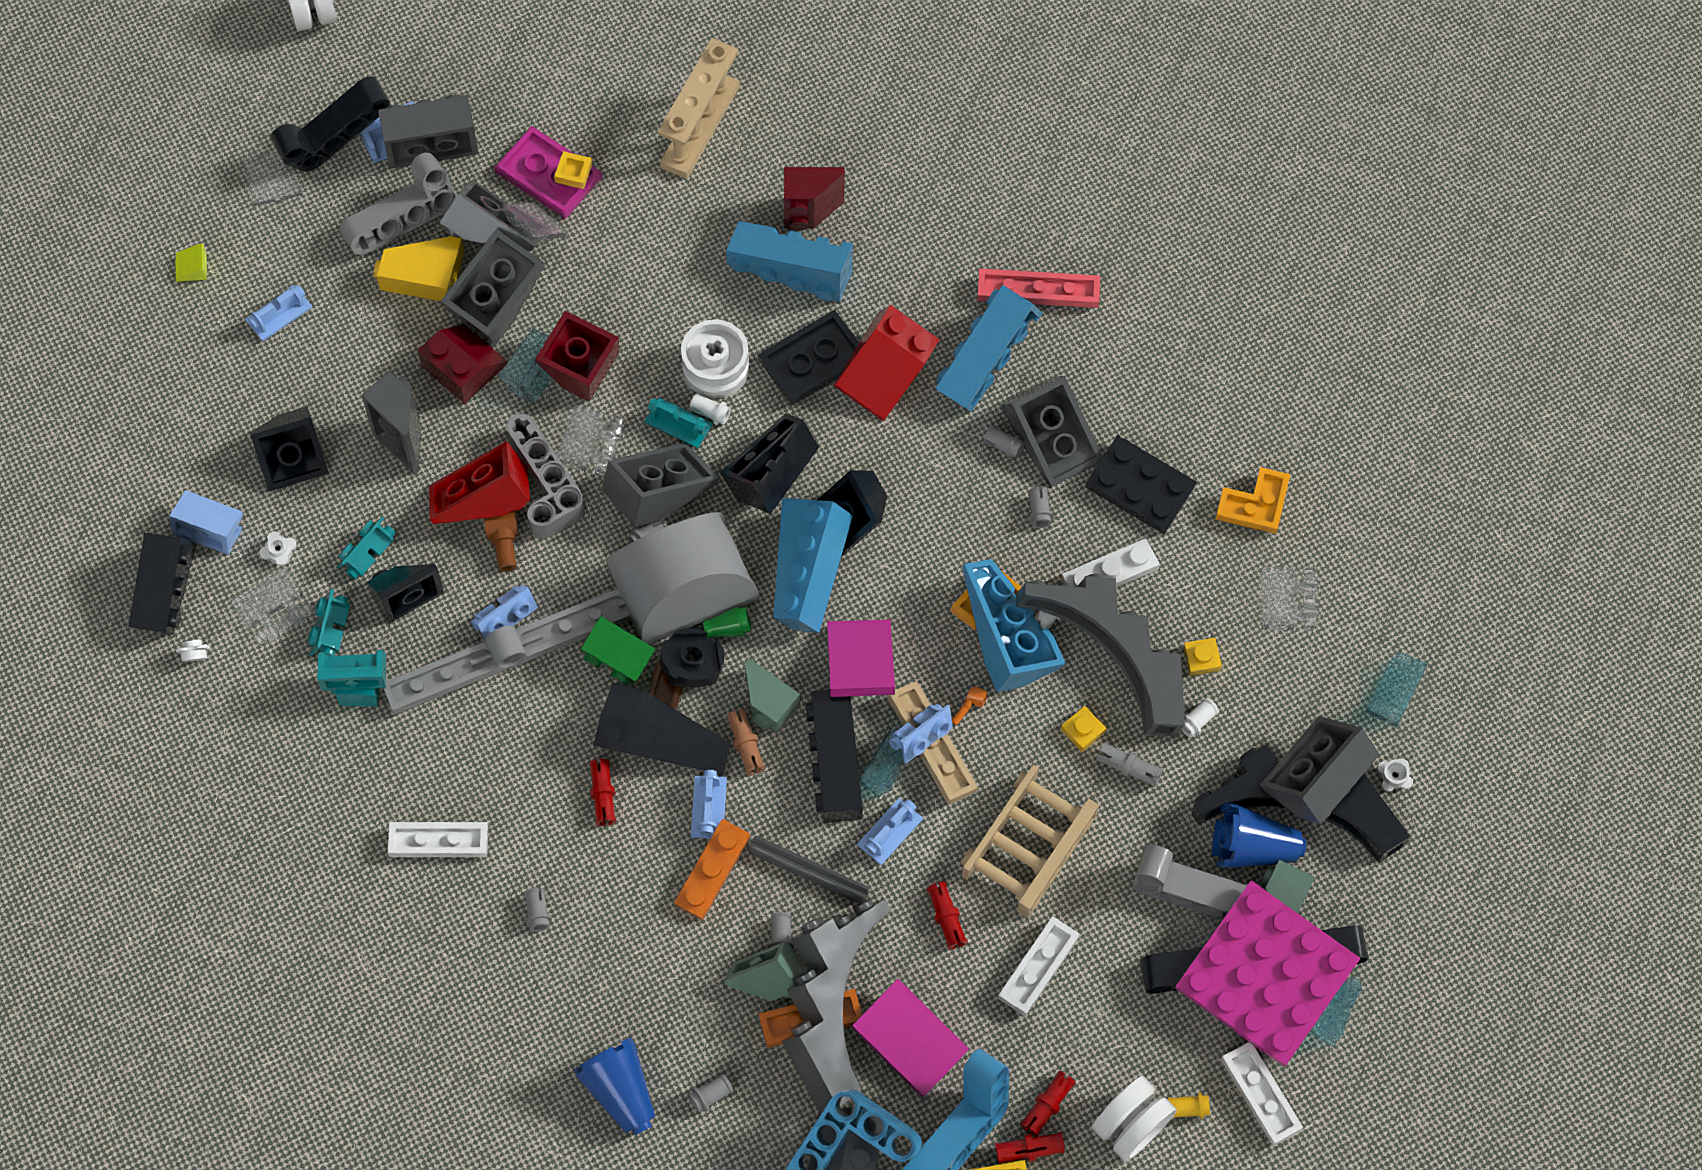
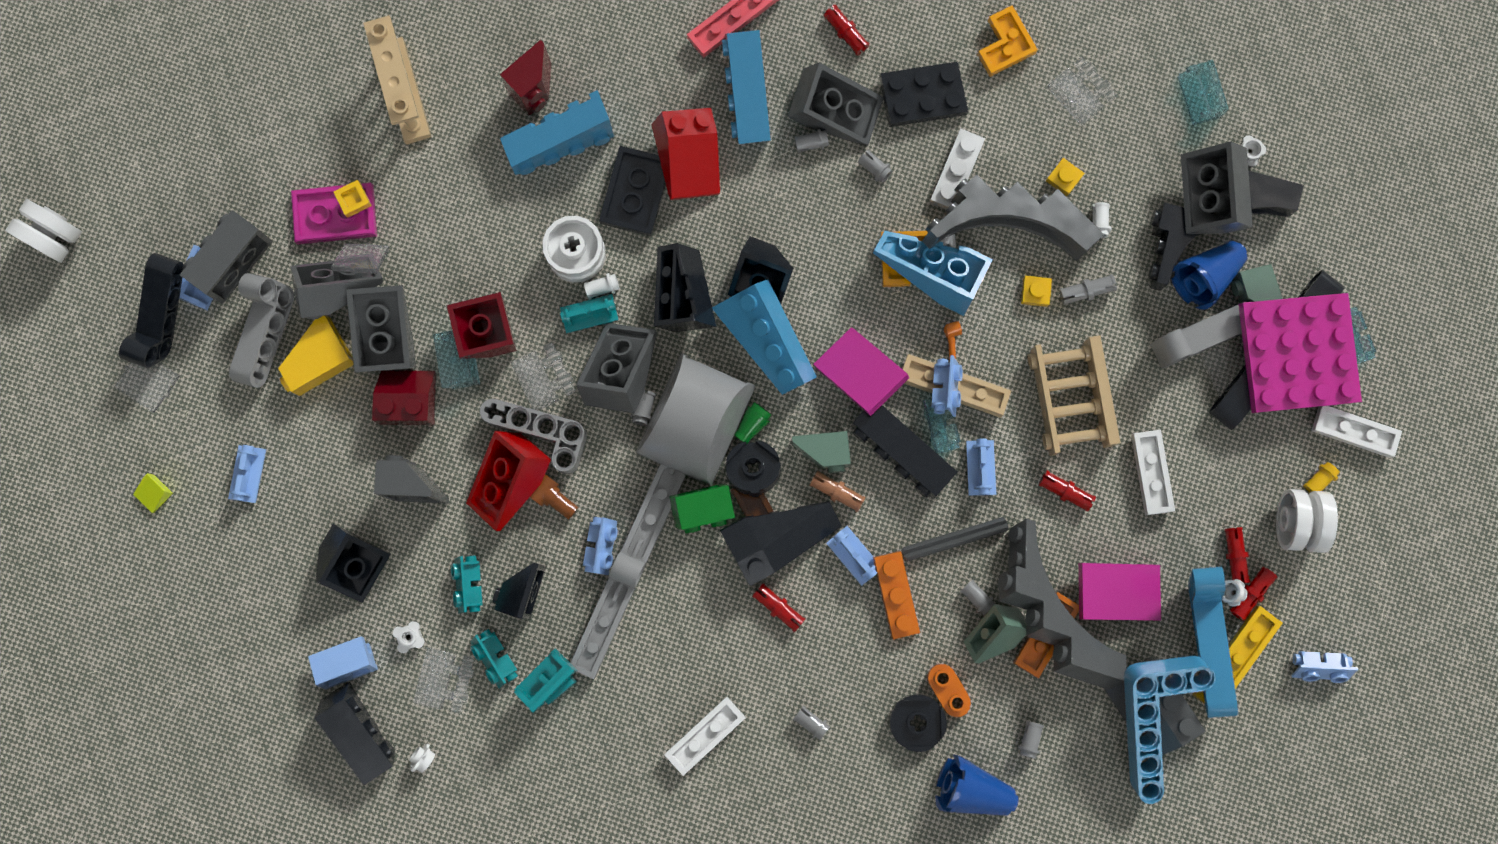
camera: 40 degrees left, 15 degrees up
(626, 1009) = (929, 734): none -> black plate
(680, 988) = (949, 690): none -> orange plate
(1010, 1126) = (1241, 592): none -> white plate
(1123, 378) = (846, 30): none -> red pin

